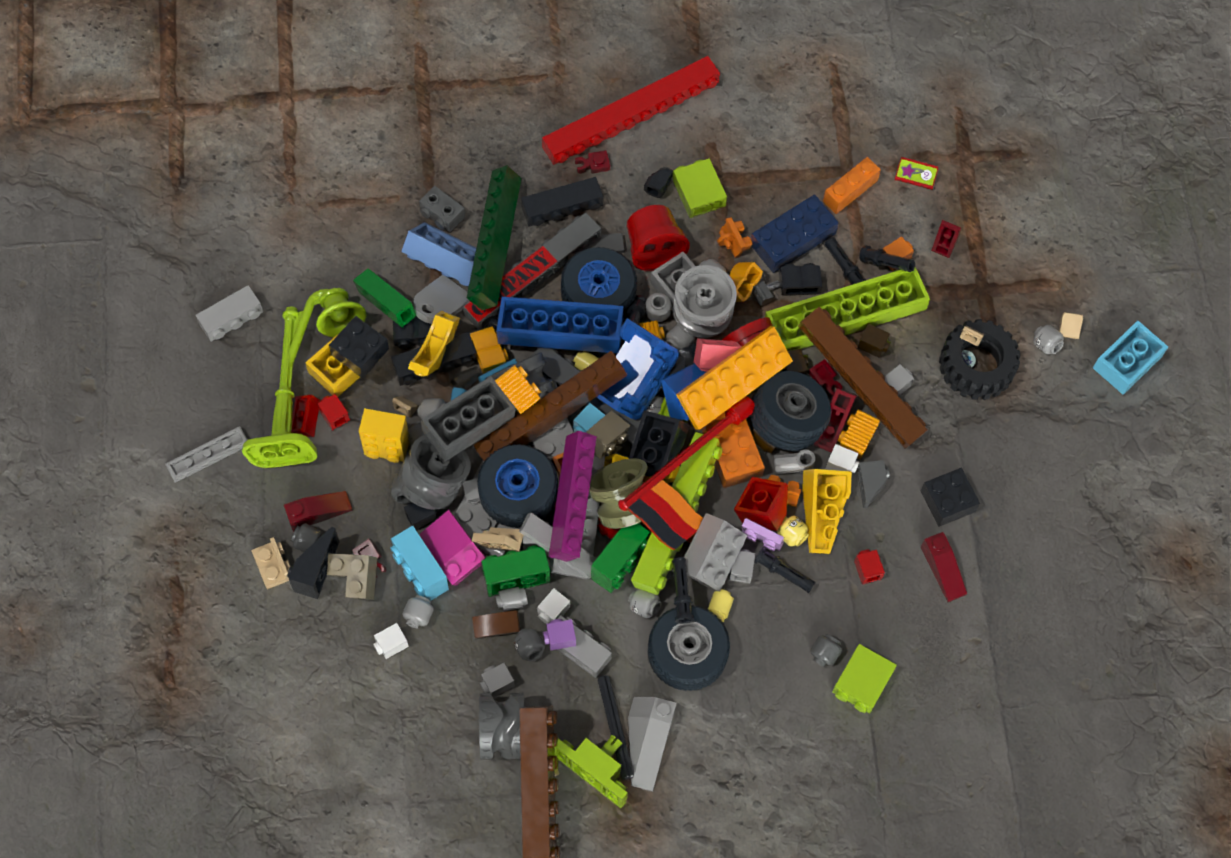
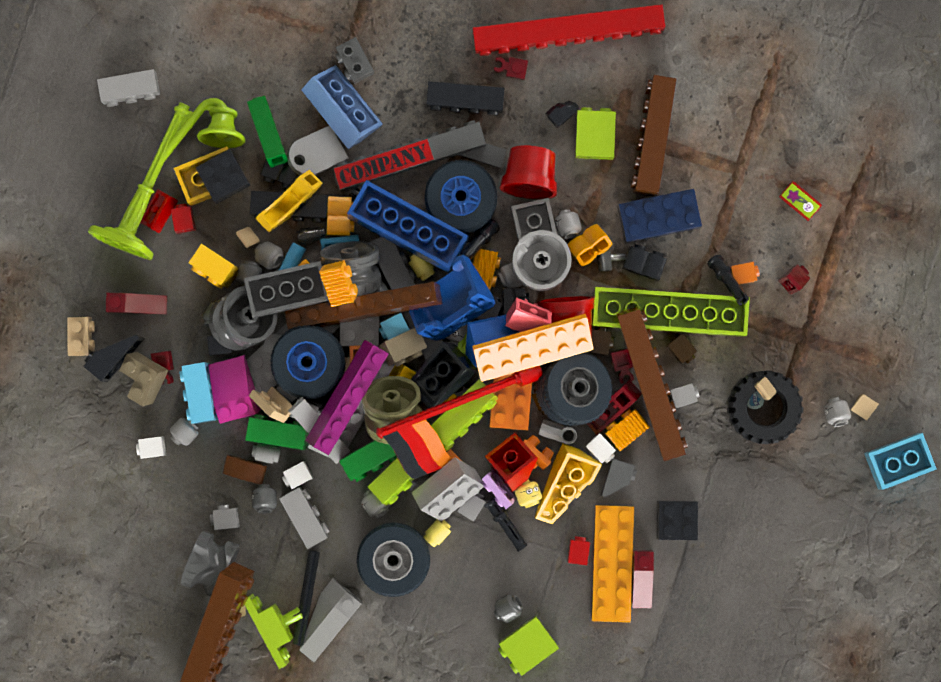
camera: 30 degrees right, 20 degrees up
(206, 454) = (63, 212): light grey tile -> none
(305, 536) = (117, 327): dark grey head -> none
(494, 238) = (386, 114): dark green brick -> none
(560, 634) = (289, 506): medium lavender brick -> none
(658, 307) = (507, 232): light grey head -> none
(682, 600) = (401, 525): black pin -> none
(732, 239) = (600, 197): orange hips -> none
(754, 164) = (654, 136): none -> reddish brown brick
(850, 271) = (693, 273): black pin -> none
(851, 185) = (734, 190): orange brick -> none
(908, 567) = (612, 563): none -> light orange plate

